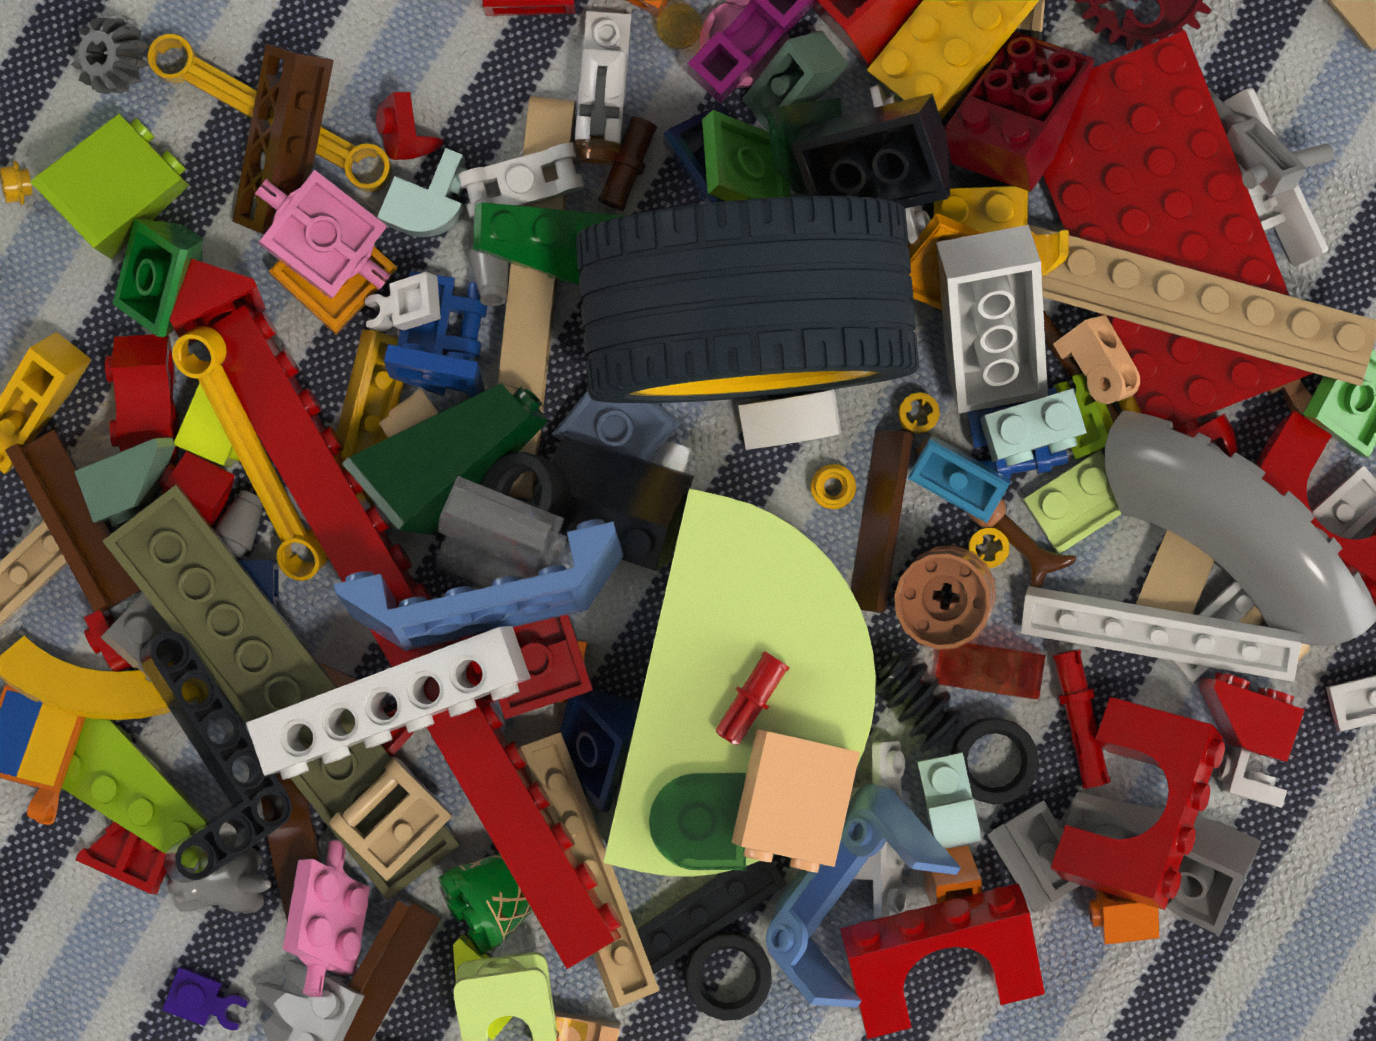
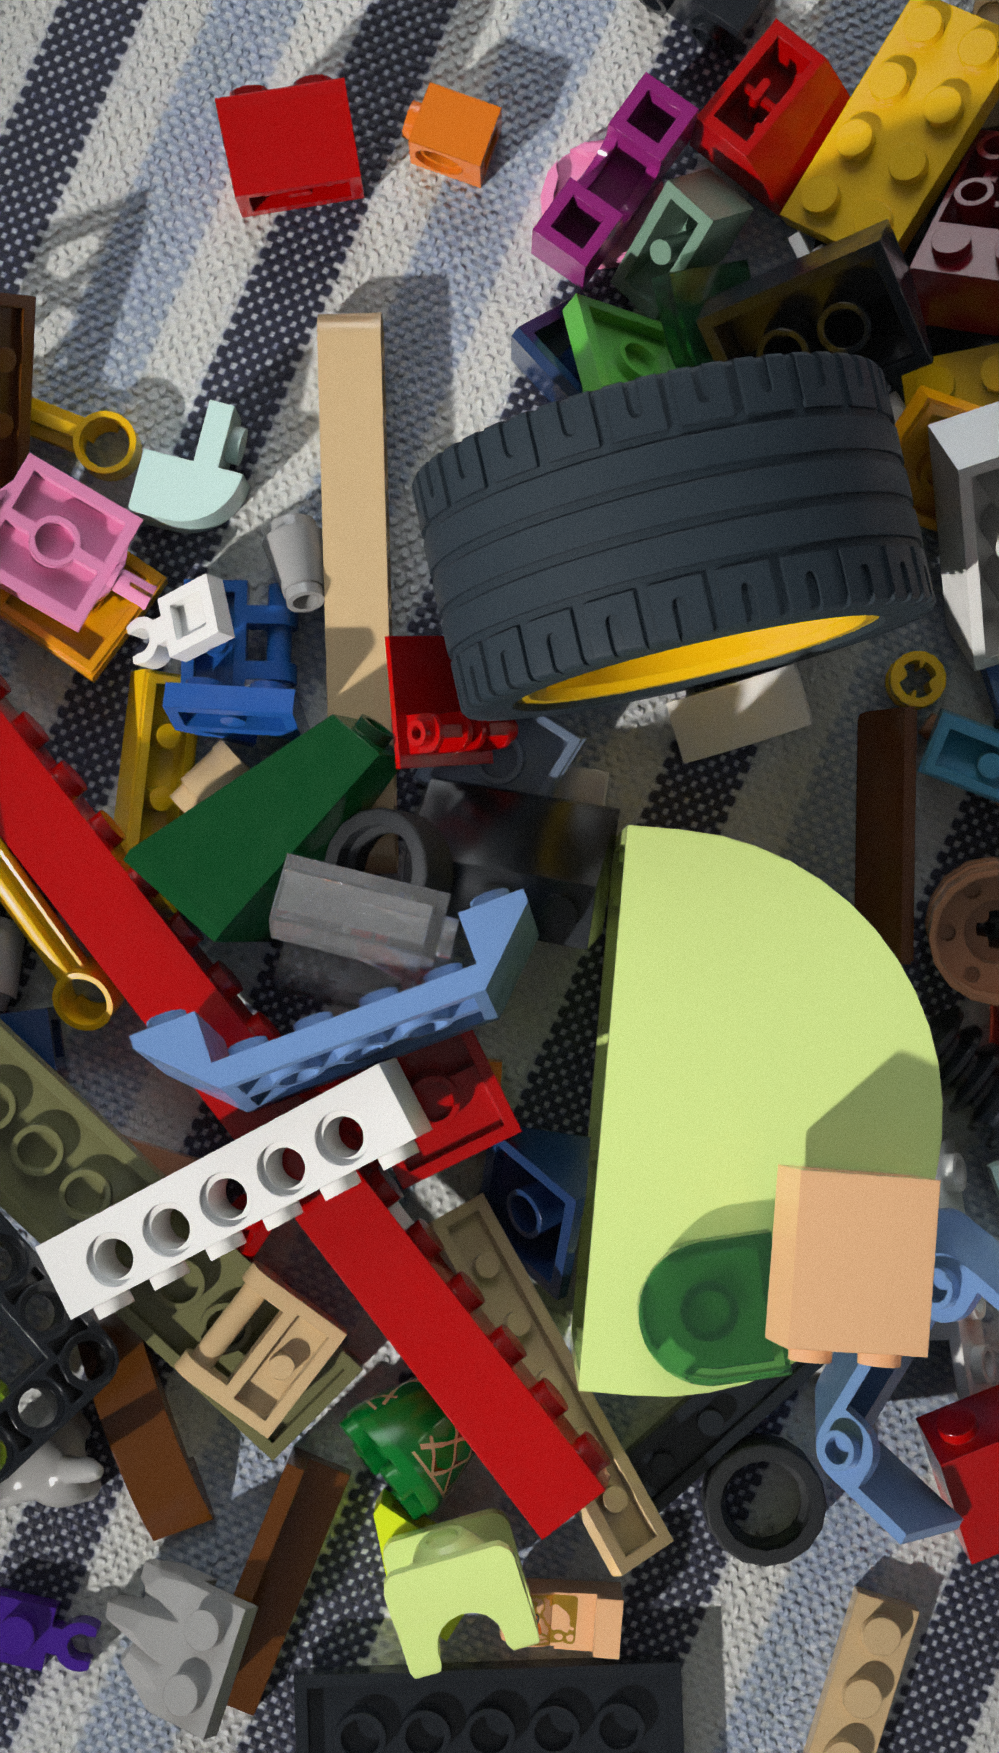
camera: 10 degrees left, 0 degrees up
(326, 918) = (188, 1504): bright pink plate -> none
(397, 125) = (139, 380): red plate -> none
(523, 180) = (322, 430): white plate -> none
(533, 236) = (346, 506): green wing -> none
(565, 390) = (427, 711): none -> red hinge
(602, 86) = (416, 289): white plate -> none
(628, 163) = (466, 385): reddish brown pin -> none
(679, 26) = (510, 193): clear yellow plate -> none
(751, 699) = (764, 1121): red axle -> none
(847, 482) = (830, 791): yellow plate -> none

